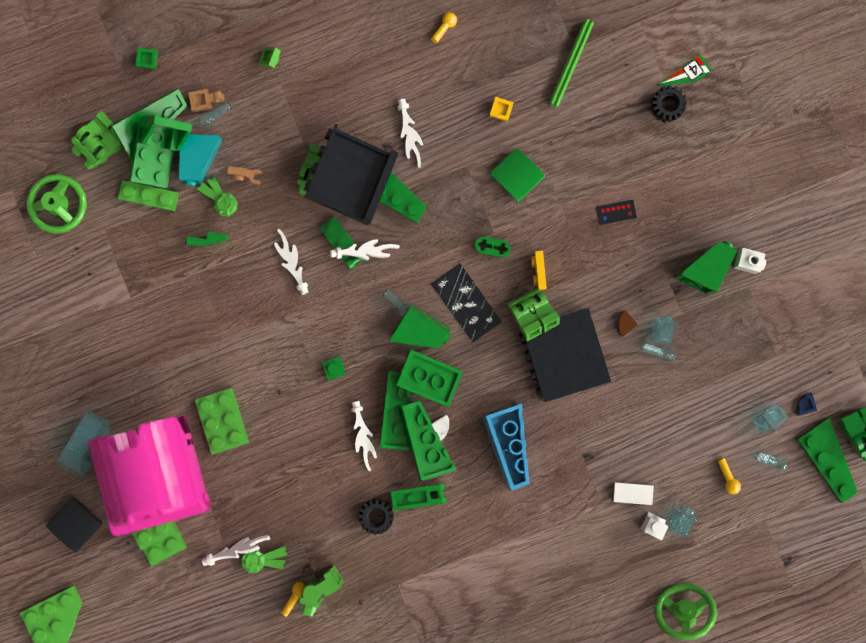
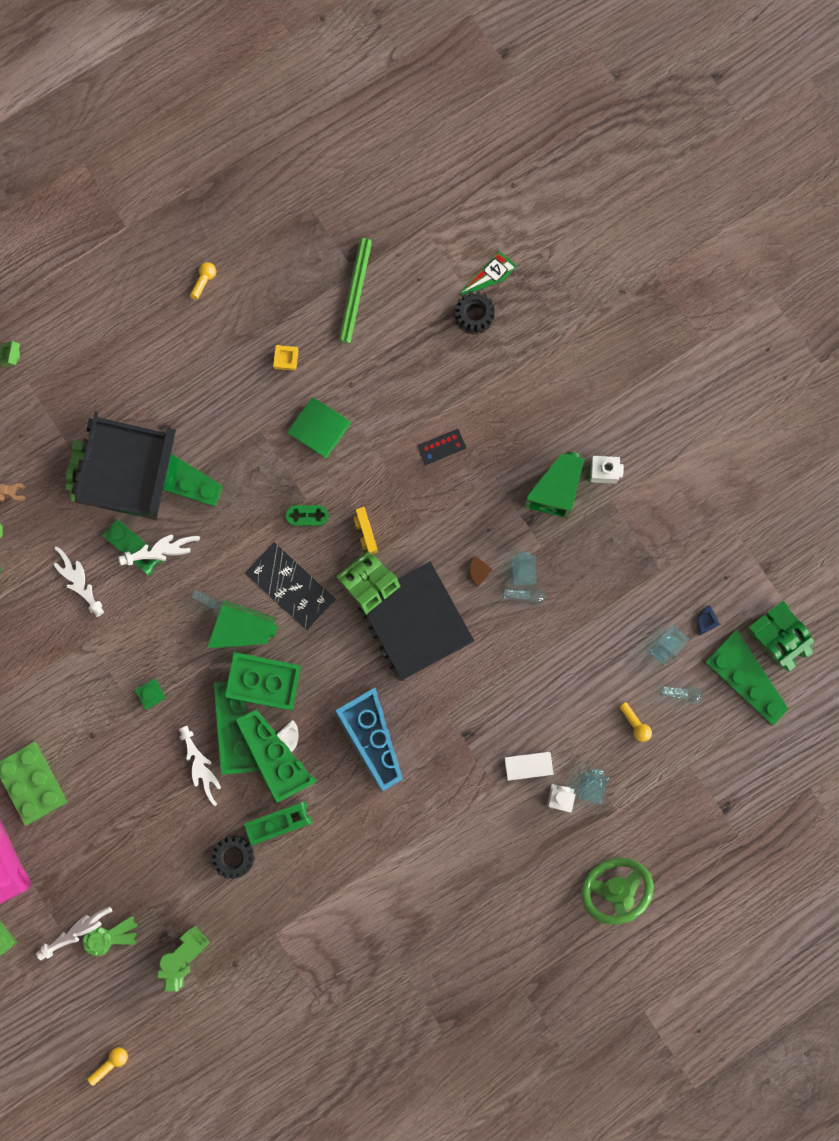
camera: 10 degrees left, 5 degrees down
(297, 591) = (153, 979): yellow bar -> none
(412, 135) = (189, 407): white piece -> none

